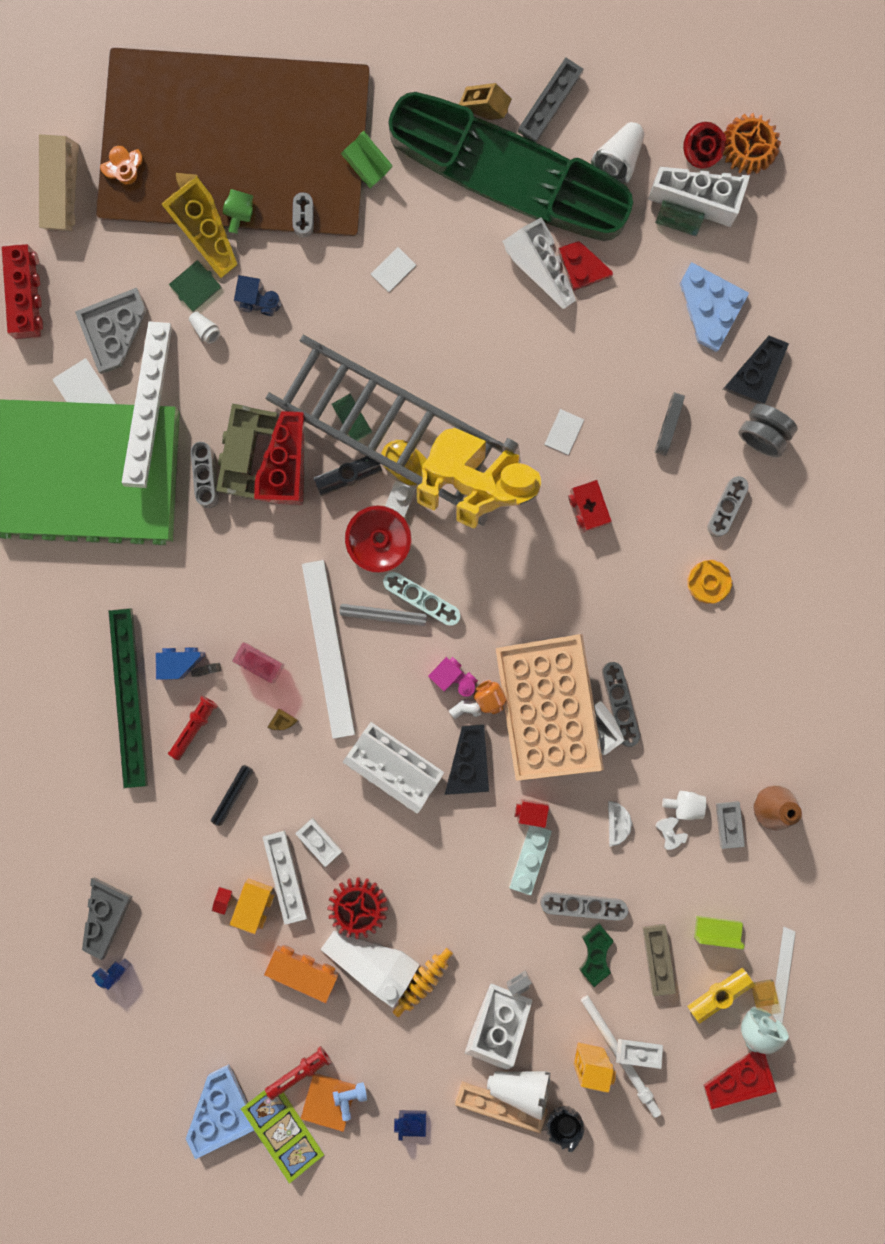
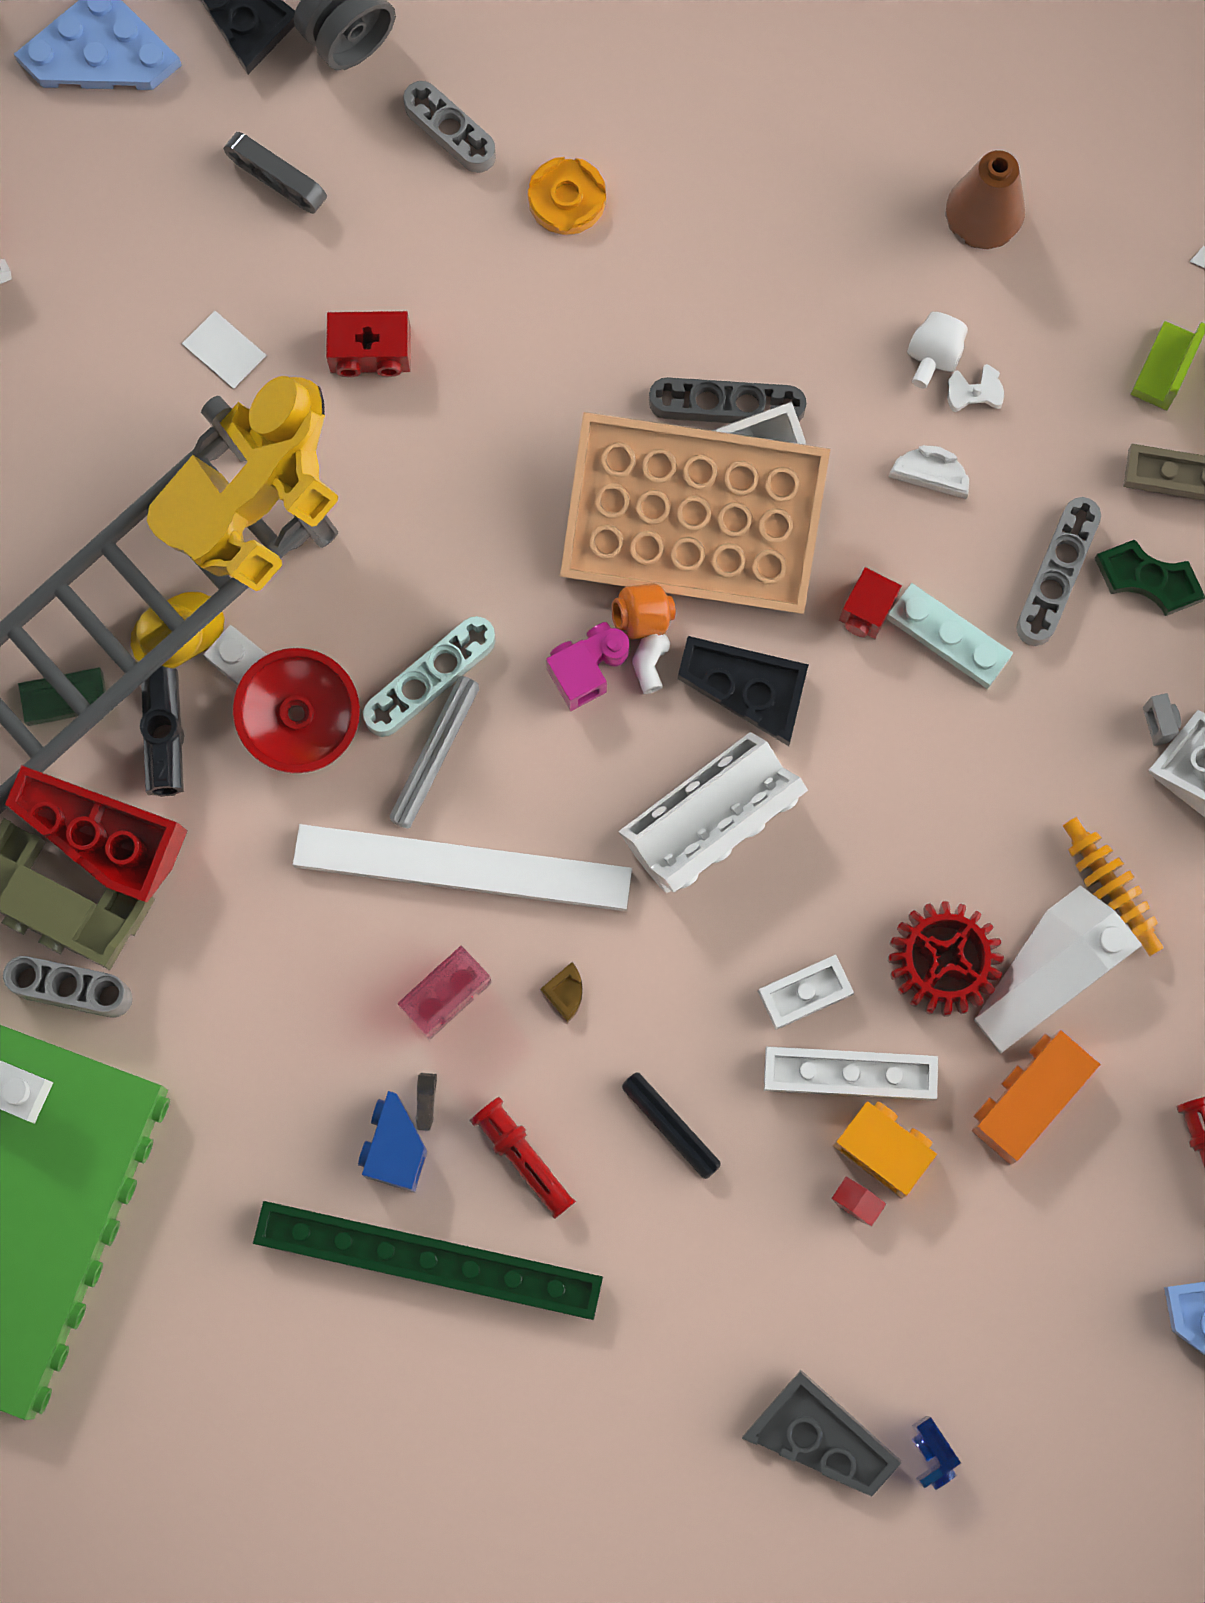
camera: 70 degrees left, 10 degrees down
(730, 824) = (990, 289): light grey plate -> none

